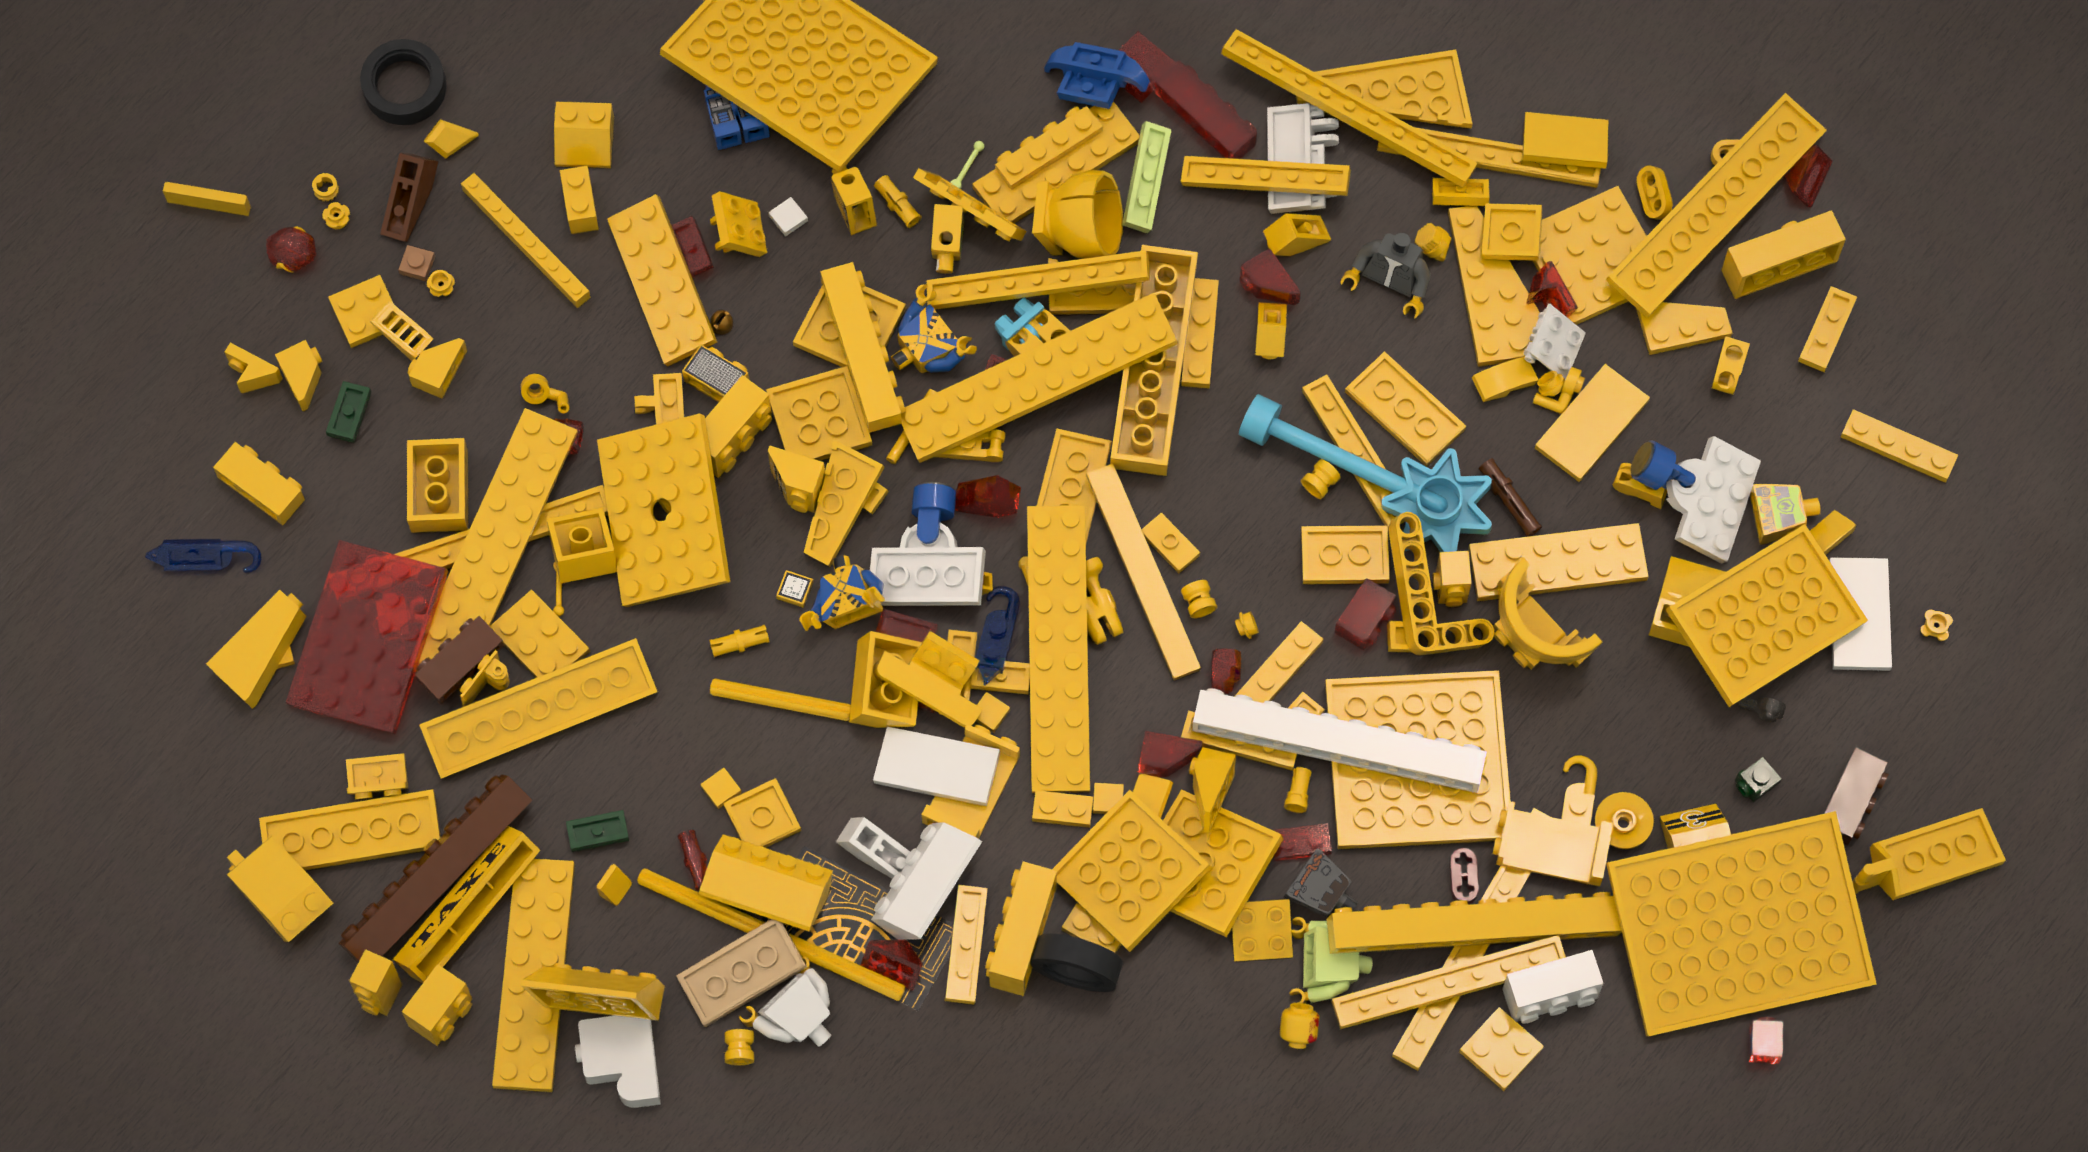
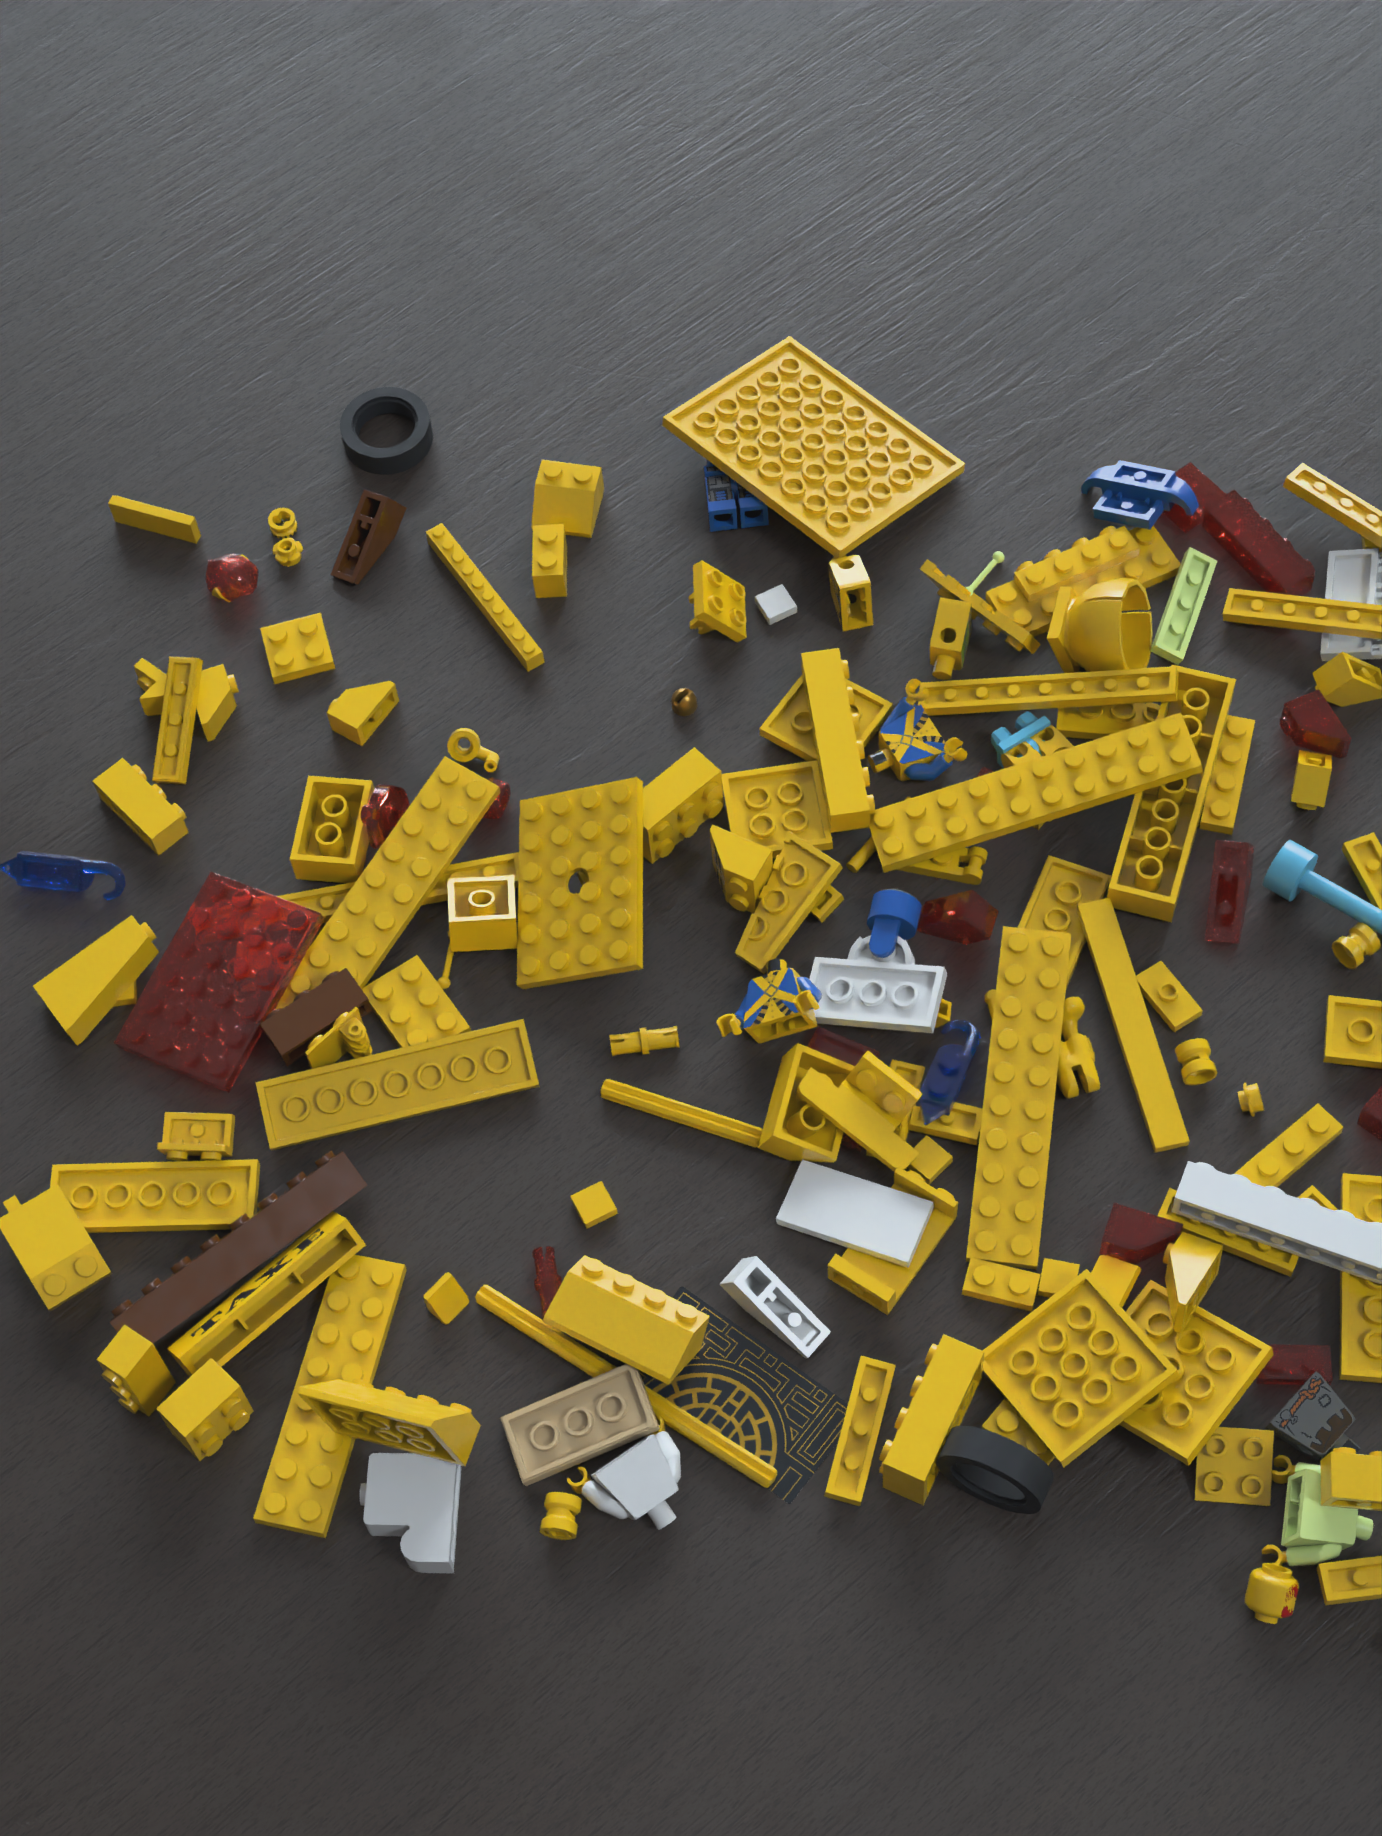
camera: 15 degrees right, 10 degrees down
(276, 399) = (177, 720): none -> yellow tile
(348, 411) = (255, 745): dark green plate -> none
(407, 322) = (327, 683): yellow slope -> none
(416, 263) = (363, 607): medium nougat plate -> none
(437, 277) = (383, 622): yellow plate -> none
(448, 138) = (423, 488): yellow piece -> none
(480, 466) = (383, 812): none -> clear red plate
(597, 830) = (439, 1233): dark green plate -> none
(661, 280) = (625, 652): yellow plate -> none
(666, 399) = (609, 766): yellow plate -> none
(692, 246) = (662, 621): clear red plate -> none
(712, 373) = (659, 747): brick -> none
(762, 815) = (638, 1242): yellow tile -> none
(794, 589) = (718, 992): tile -> none
(893, 960) = (767, 1437): clear red slope -> none
(897, 201) = (899, 601): yellow pin -> none
(925, 881) = (819, 1344): white slope -> none
(1211, 442) = (1229, 890): none -> clear red slope
(1225, 669) = (1220, 1144): clear red rock -> none
(1297, 796) = (1294, 1308): yellow pin -> none

